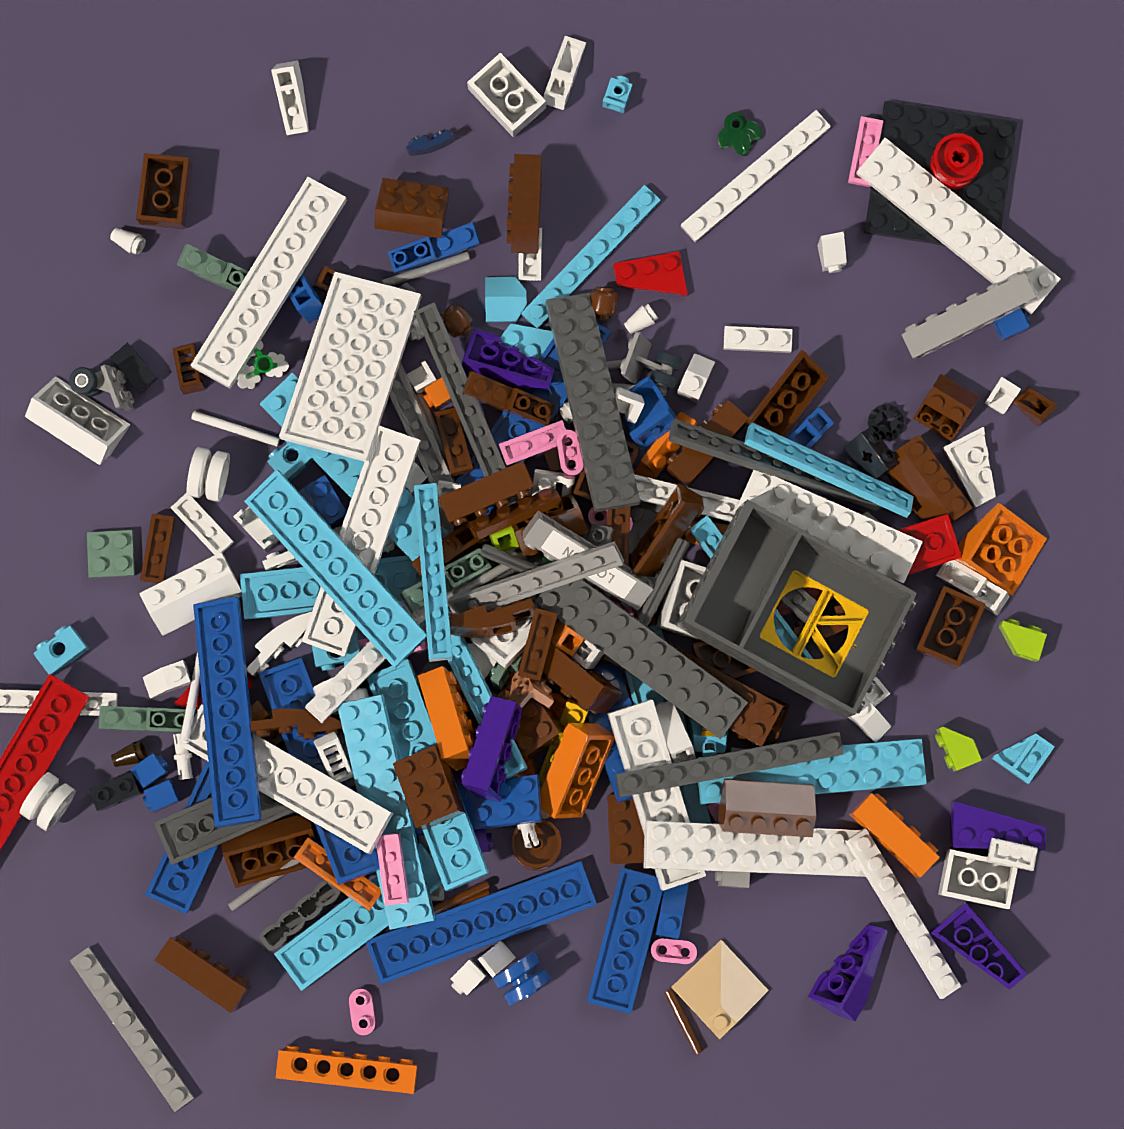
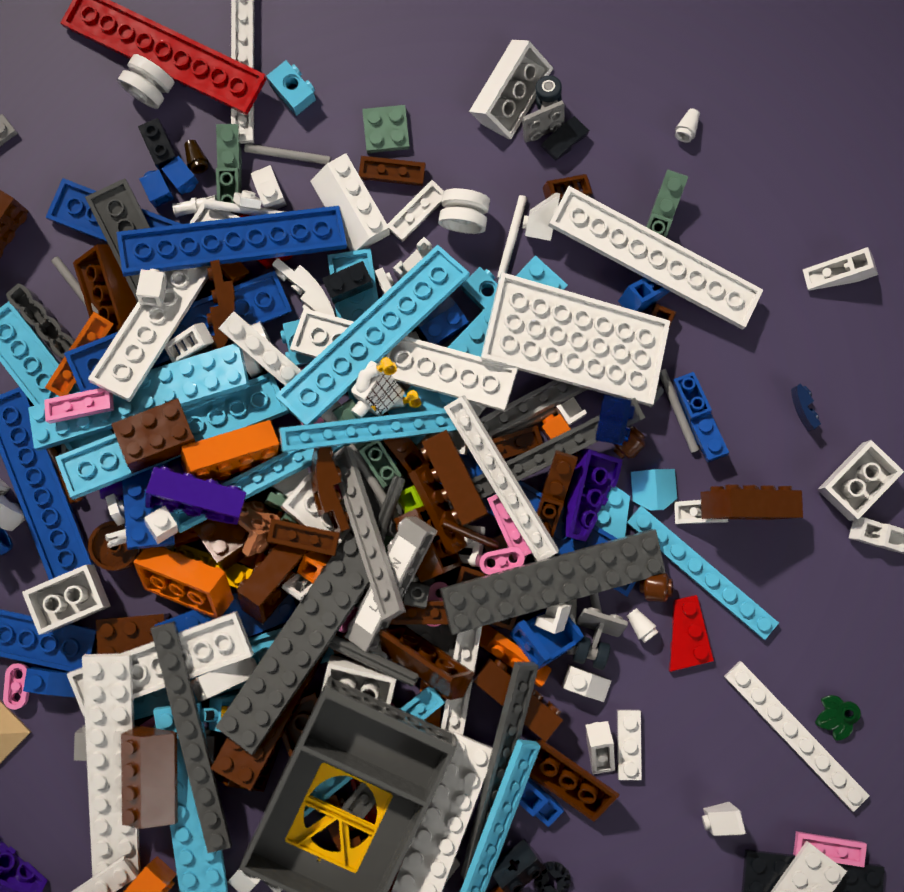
camera: 85 degrees right, 0 degrees up
(131, 659) = (288, 154): none -> light grey bar
(164, 191) = (739, 154): reddish brown brick -> none
(183, 697) = (247, 199): none -> white plate
(218, 396) = (540, 217): none -> white slope
(269, 364) = (574, 255): white plant -> none
(275, 790) = (151, 287): none -> white brick
(277, 596) = (348, 282): none -> black brick
(394, 563) = (379, 391): none -> white torso
(411, 207) = (739, 392): reddish brown brick -> none
(436, 333) = (614, 420): none -> clear blue brick
(488, 448) = (501, 478): none -> white plate
(500, 835) = (116, 509): none -> white plate
(519, 783) = (161, 524): none -> white brick
(541, 483) = (468, 533): none -> reddish brown bar
(588, 891) = (66, 599): none -> white brick
(617, 101) = (862, 588): medium azure brick -> none
(758, 367) = (600, 747): none -> white slope

